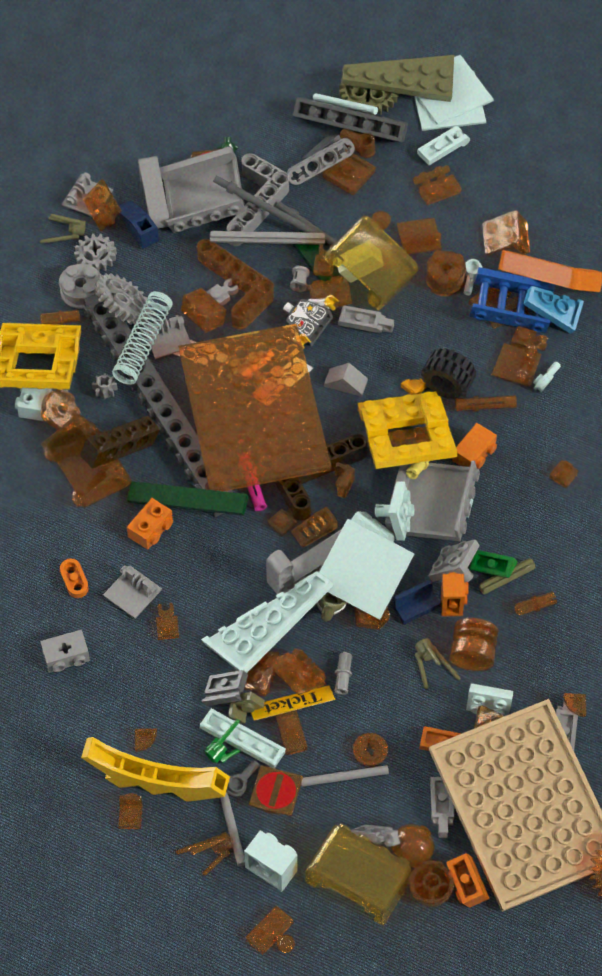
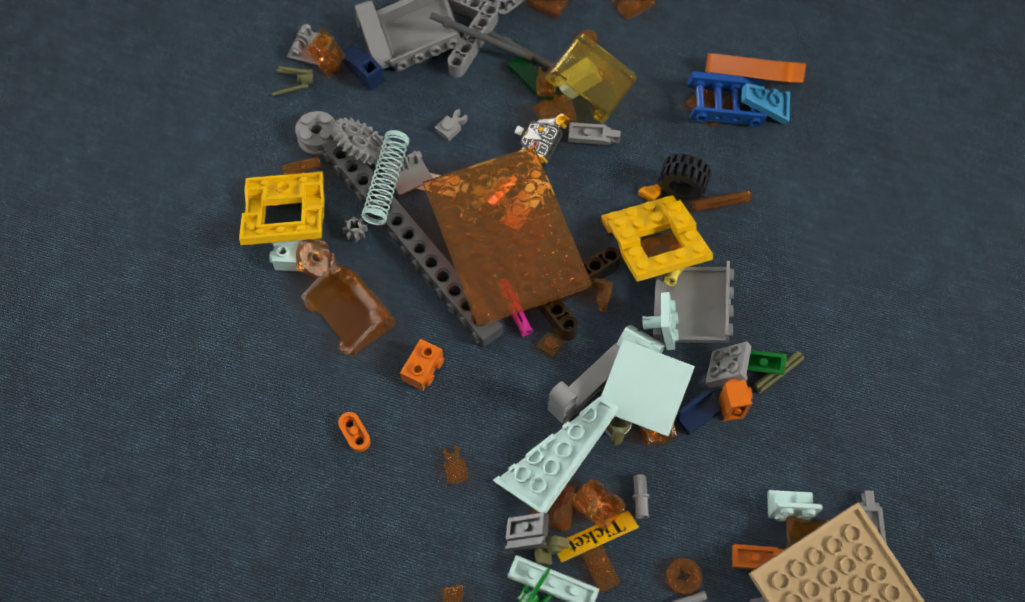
camera: 10 degrees left, 5 degrees up
(72, 643) = (345, 513): light grey brick -> none
(104, 248) = (335, 98): light grey gear -> none
(119, 441) = (379, 285): dark brown brick -> none
(132, 591) = (415, 438): light grey hinge -> none
(188, 498) = (456, 334): dark green tile -> none
(203, 310) = (438, 142): clear orange brick -> none
(258, 291) = (477, 109): clear orange beam -> none
(266, 237) = (487, 66): light grey axle -> none
(300, 275) = (523, 97): light grey bush -> none
(311, 522) = (585, 335): clear orange slope -> none
(346, 379) = (585, 194): light grey slope -> none
(419, 236) = (627, 48): clear orange hinge -> none
(427, 651) = (720, 461): olive plant -> none
(445, 272) = (659, 80): clear orange brick -> none
(471, 269) = (681, 74): light aqua plate -> none
(474, 644) = (766, 450): clear orange wheel -> none
(475, 447) = (723, 245): orange brick -> none
(506, 232) = (705, 37): clear orange bracket -> none
(517, 364) = (742, 159): clear orange hinge -> none
(524, 337) = (744, 134): clear orange plate -> none
(535, 603) = (813, 396): clear orange axle -> none
(542, 381) = (771, 172): light aqua plate -> none
(564, 473) = (809, 260): clear orange tile -> none
(576, 703) = (879, 499): clear orange tile -> none

